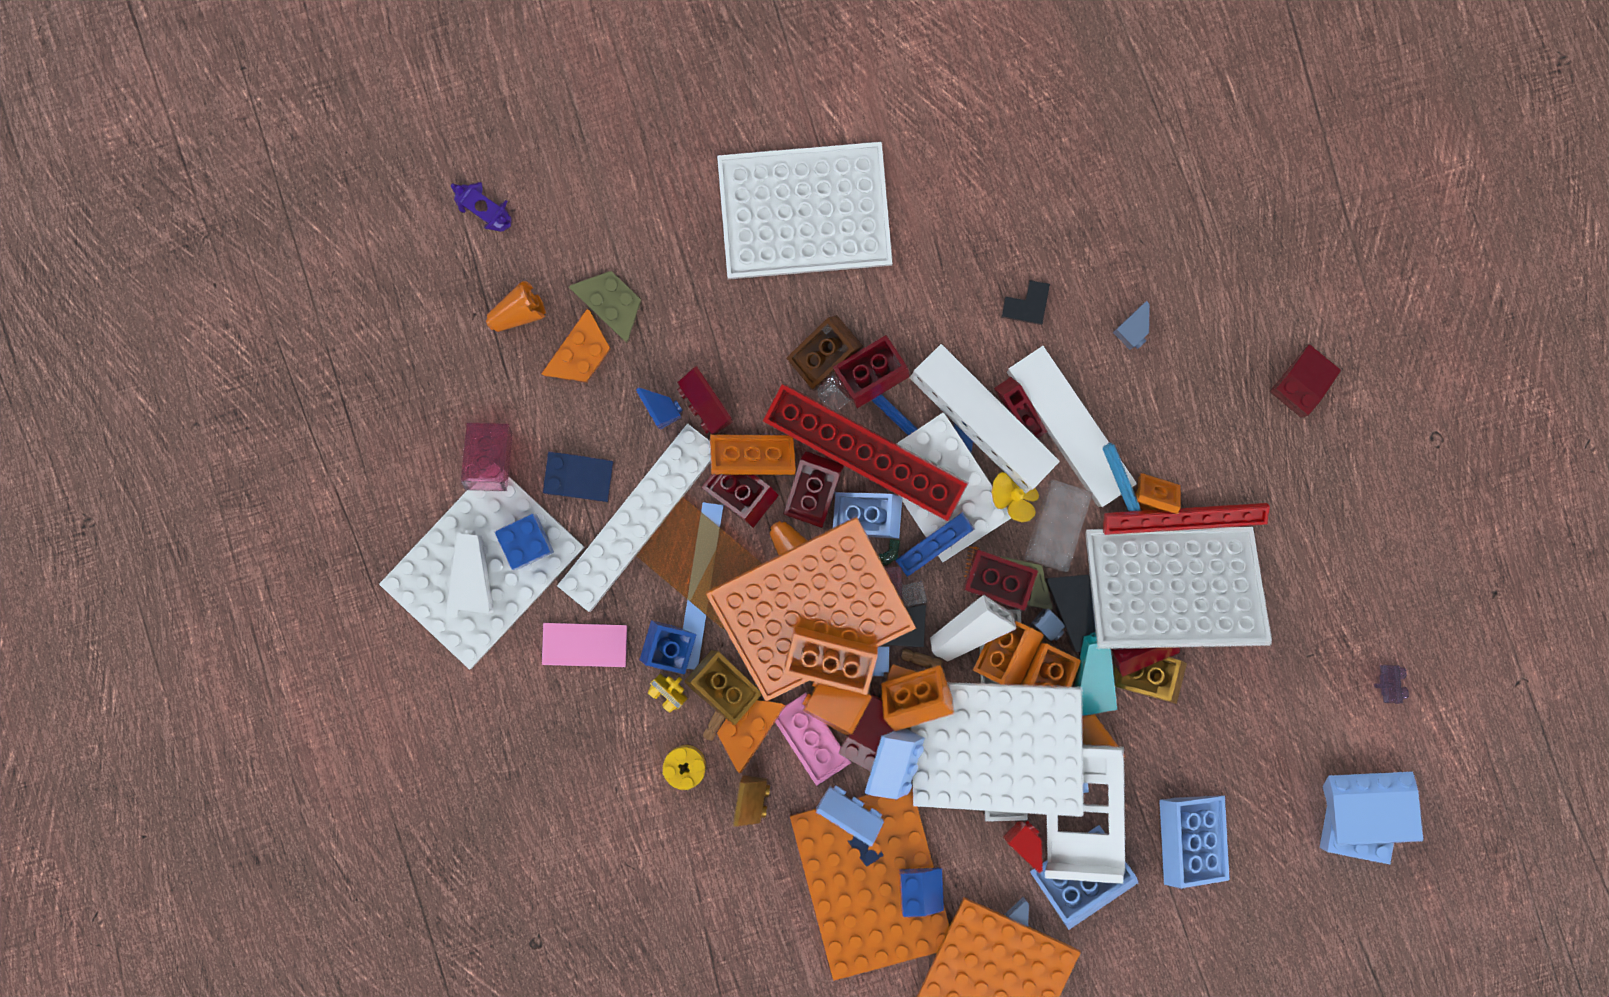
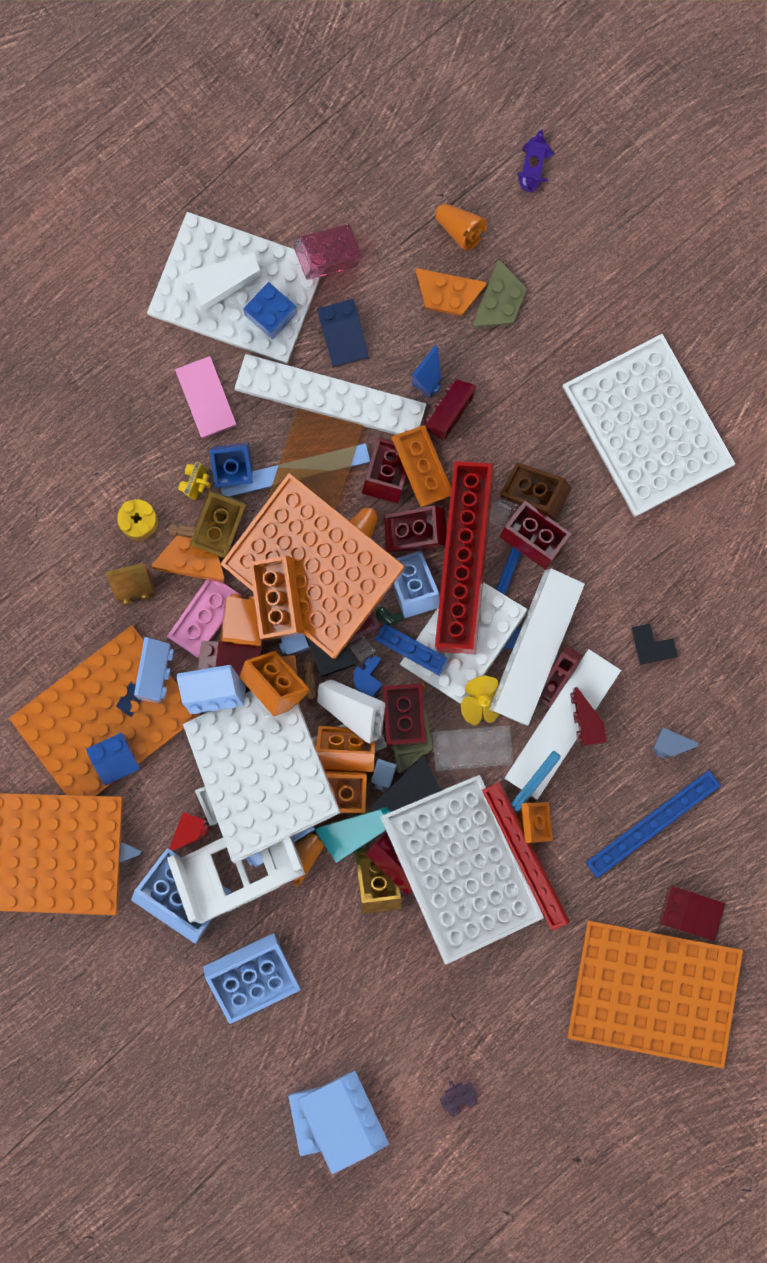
camera: 70 degrees right, 5 degrees down
(944, 605) = (364, 681): none -> blue brick
(1089, 400) = (590, 724): none -> dark red slope
(1203, 380) = (652, 824): none -> blue tile
(1369, 450) = (655, 994): none -> orange plate

